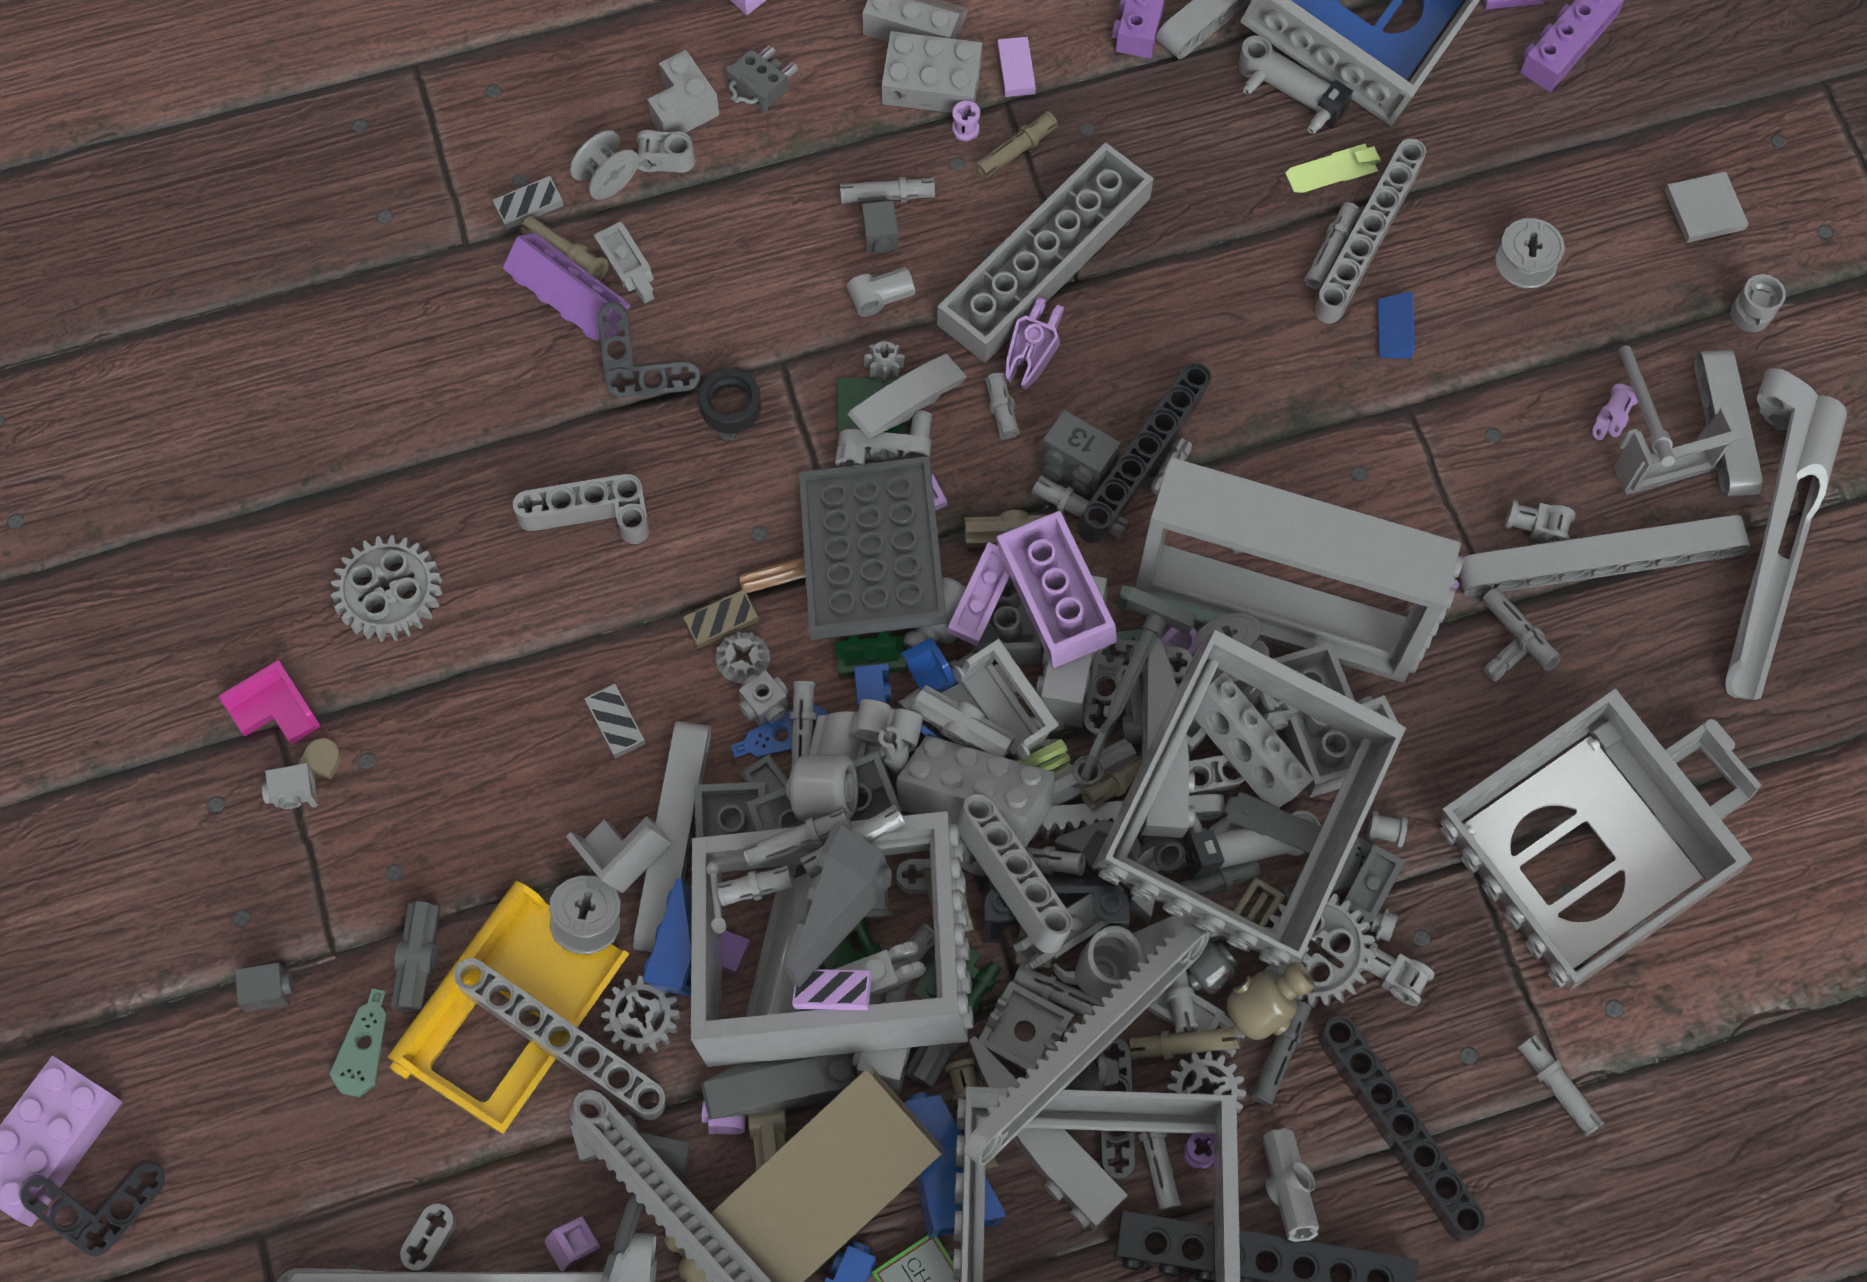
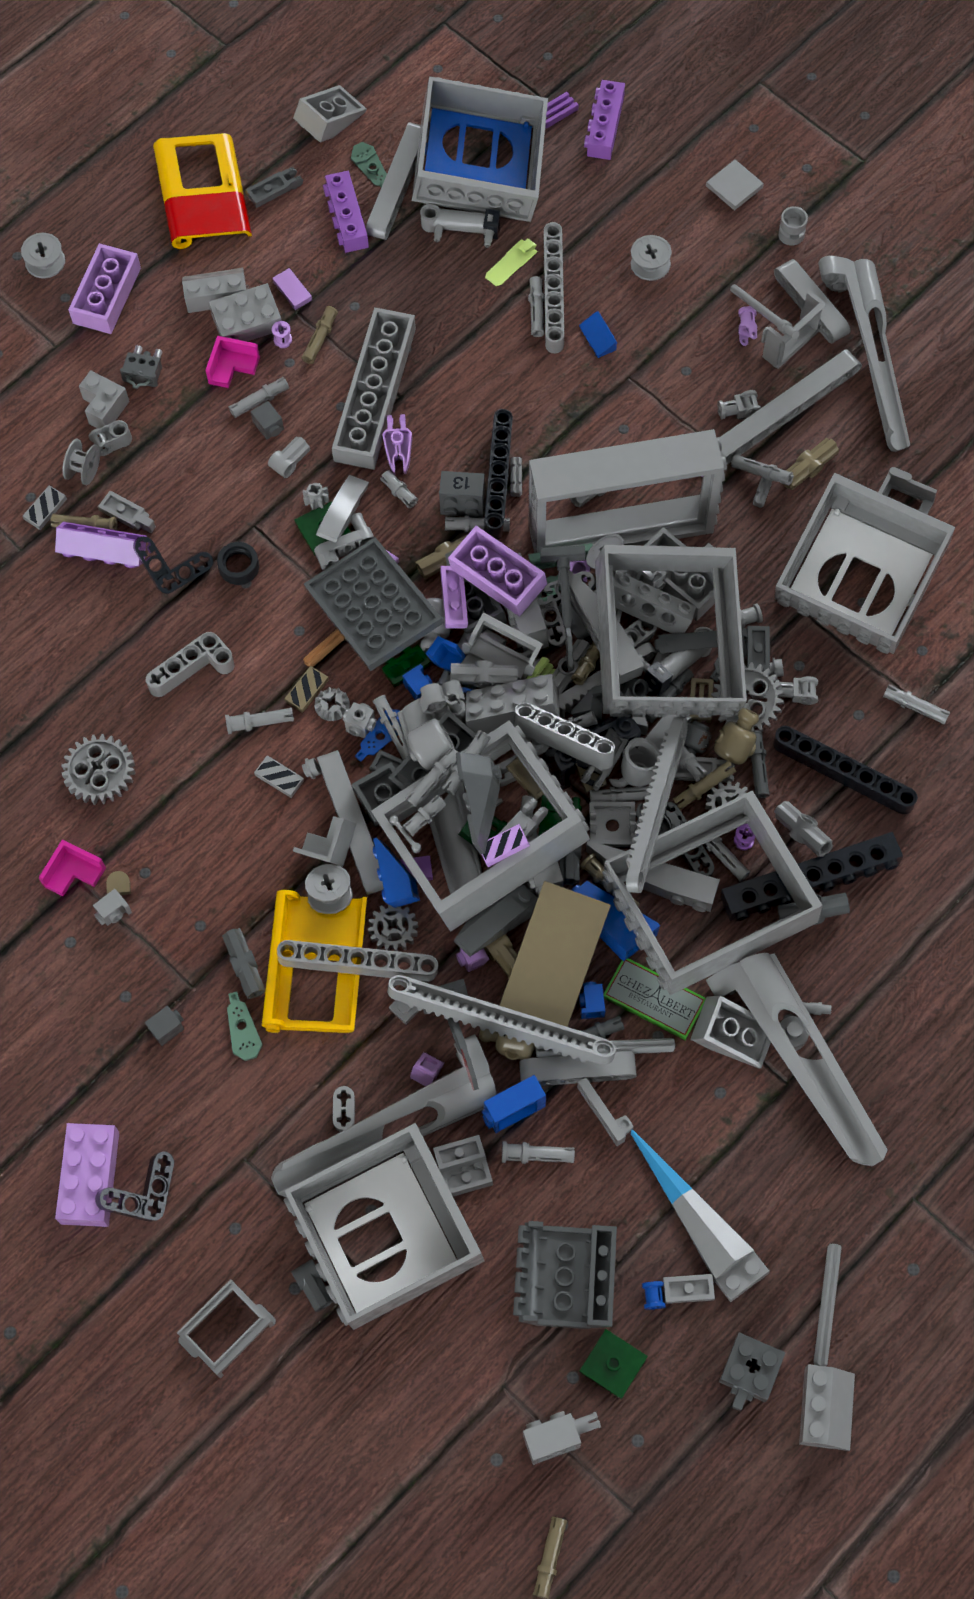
camera: 25 degrees left, 0 degrees up
(617, 624) = (247, 720): none -> light grey pin
(661, 731) = (311, 768): none -> light grey plate
(878, 117) = (231, 356): none -> dark pink panel
(1600, 653) = (812, 462): none -> dark tan piece

